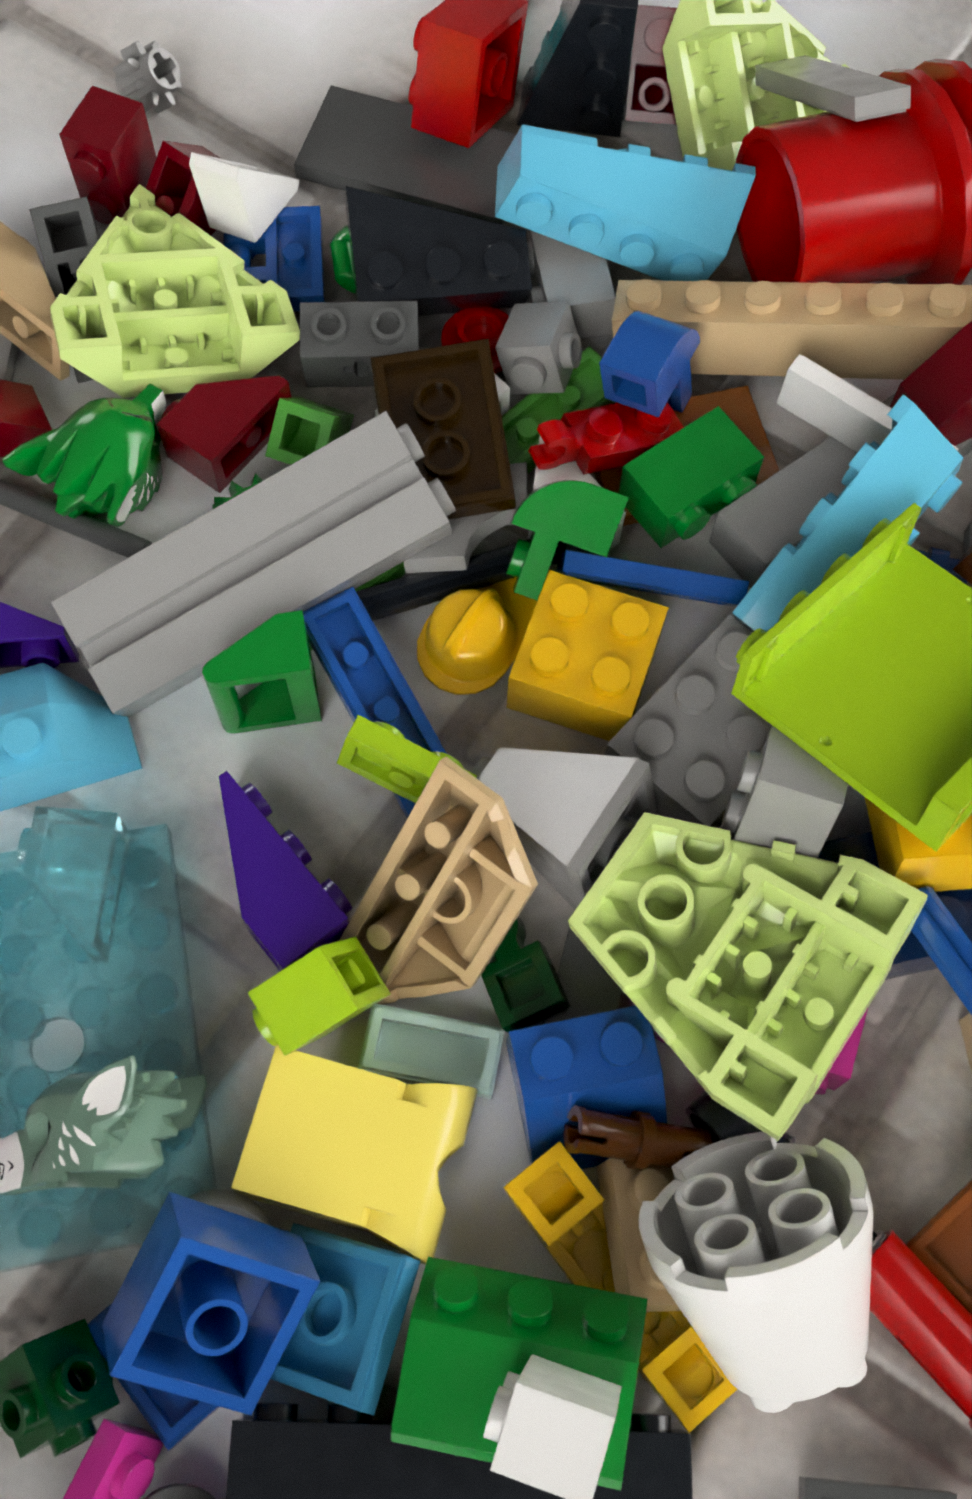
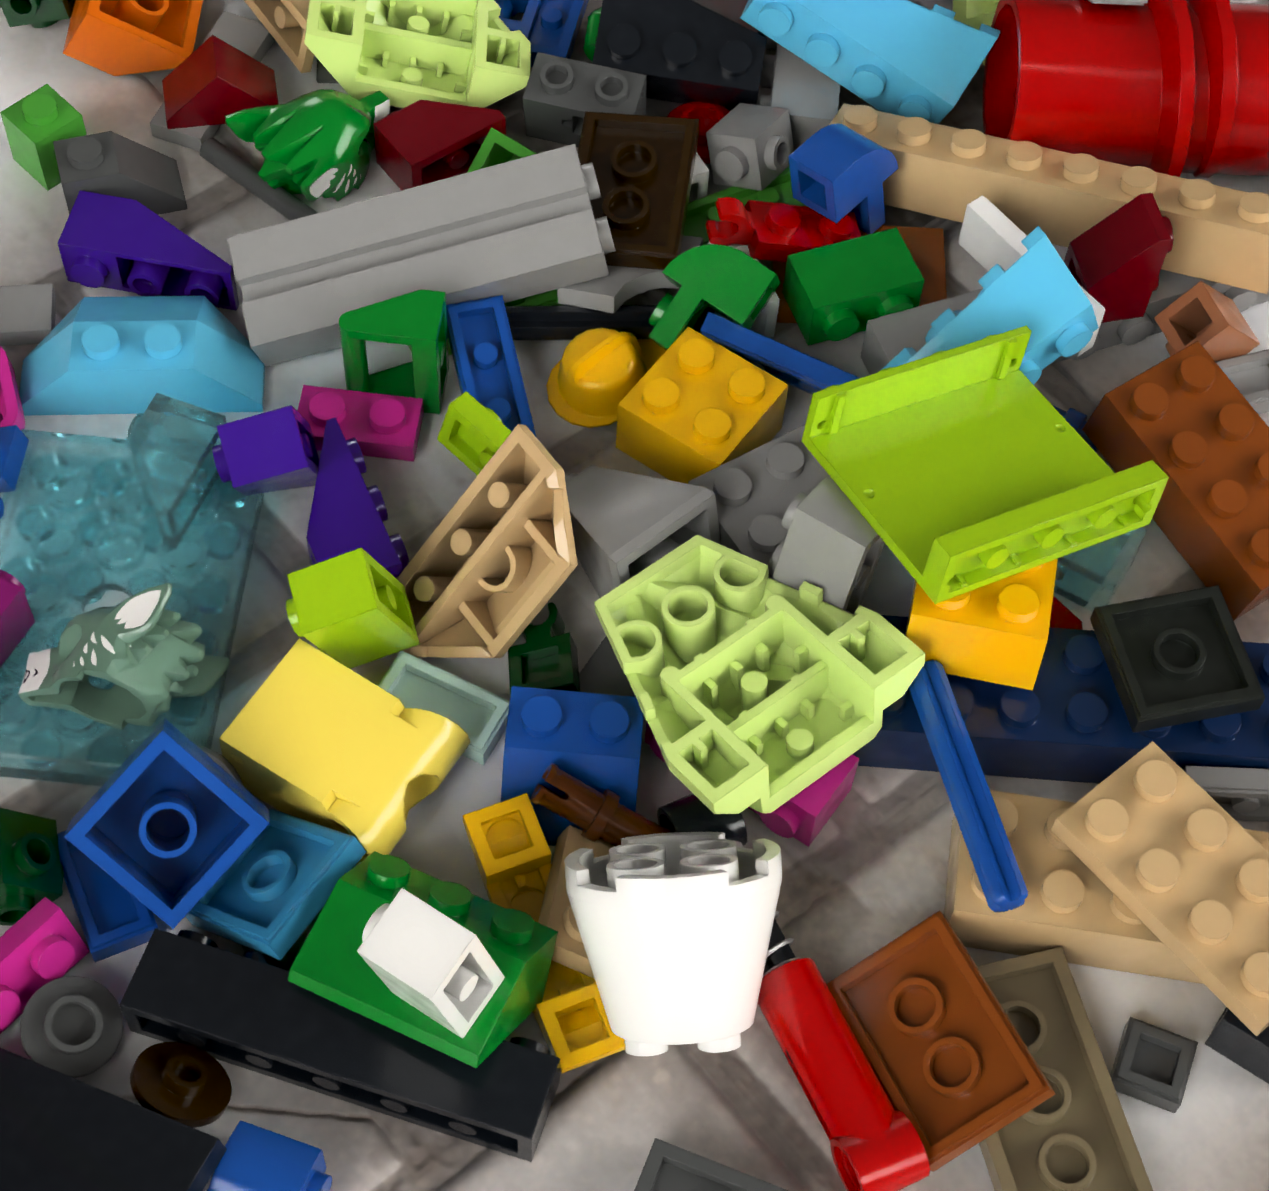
camera: 15 degrees right, 10 degrees down
(172, 838) = (267, 452): none -> dark purple slope
(256, 752) = (380, 422): none -> dark pink plate

